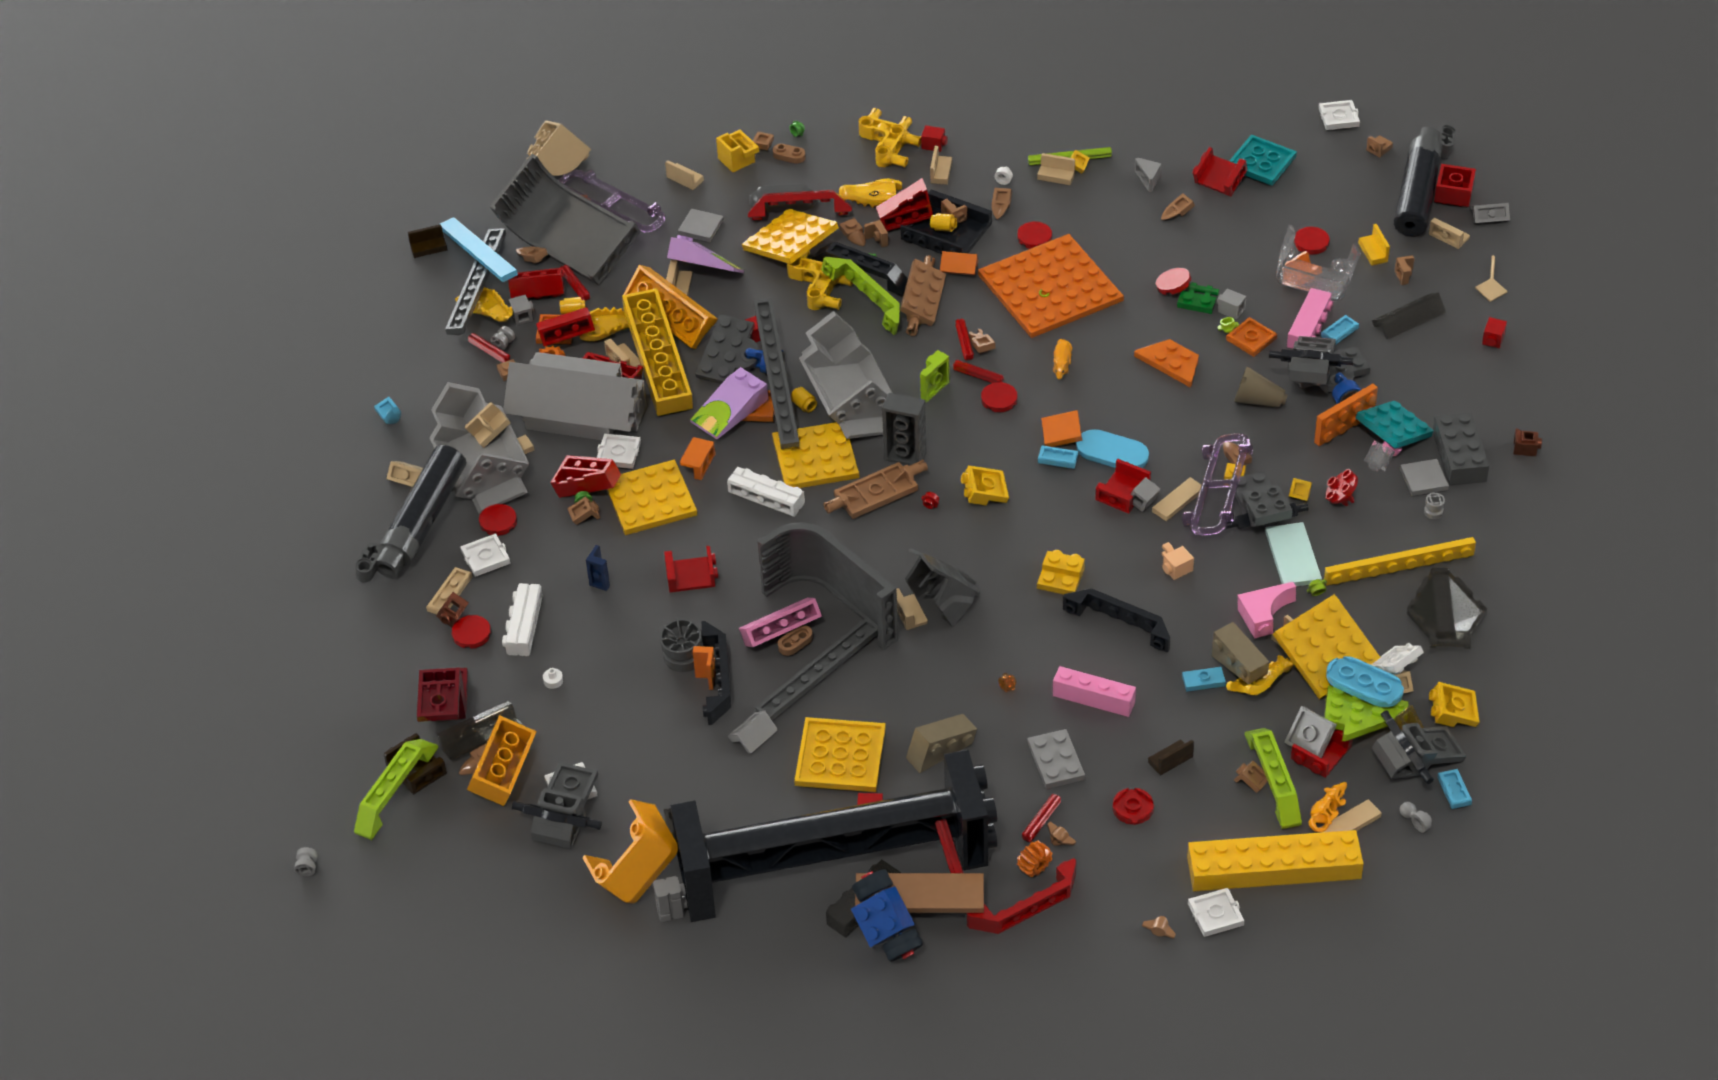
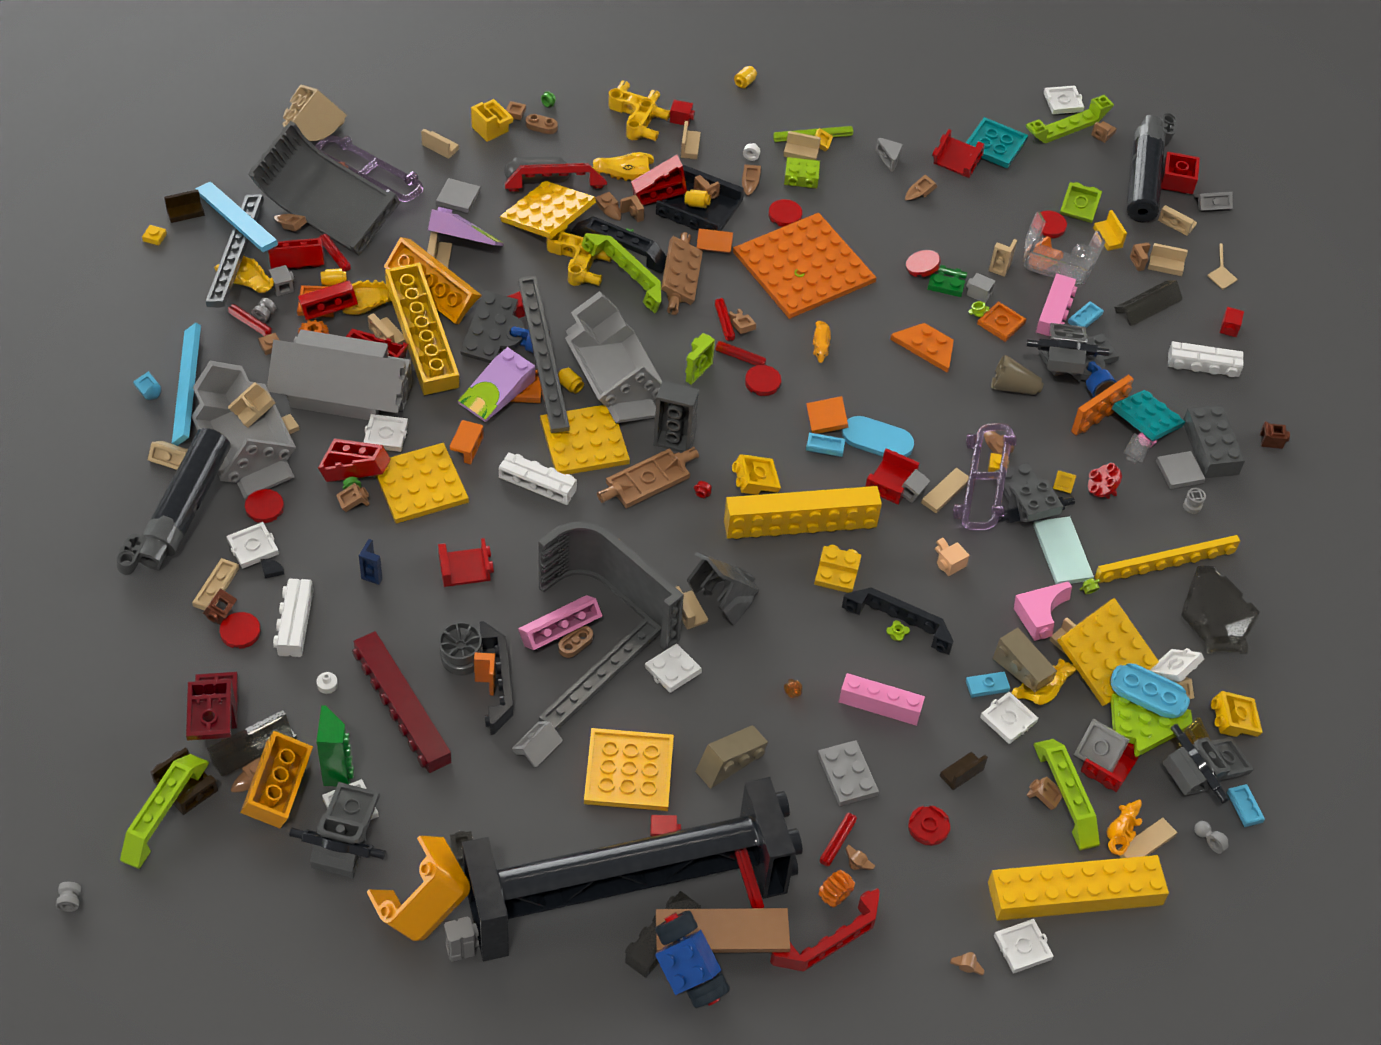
camera: 10 degrees left, 5 degrees up
(397, 269) = (154, 235): none -> yellow plate
(424, 412) = (186, 382): none -> medium azure tile
(503, 576) = (271, 568): none -> black tile
(555, 731) = (334, 749): none -> green wedge
(623, 694) = (402, 702): none -> dark red brick
(889, 664) = (673, 668): none -> white plate
(1002, 101) = (745, 77): none -> yellow brick
(1027, 519) = (802, 512): none -> yellow brick
(1055, 195) = (802, 172): none -> lime plate
(1116, 630) = (897, 635): none -> lime plate
(1221, 708) = (1009, 717): none -> white plate
(1256, 273) = (1002, 258): none -> tan panel
(1346, 217) = (1081, 202): none -> lime plate
(1373, 125) = (1097, 110): none -> lime slope
(1433, 272) = (1167, 259): none -> tan panel
(1462, 369) = (1205, 359): none -> white brick

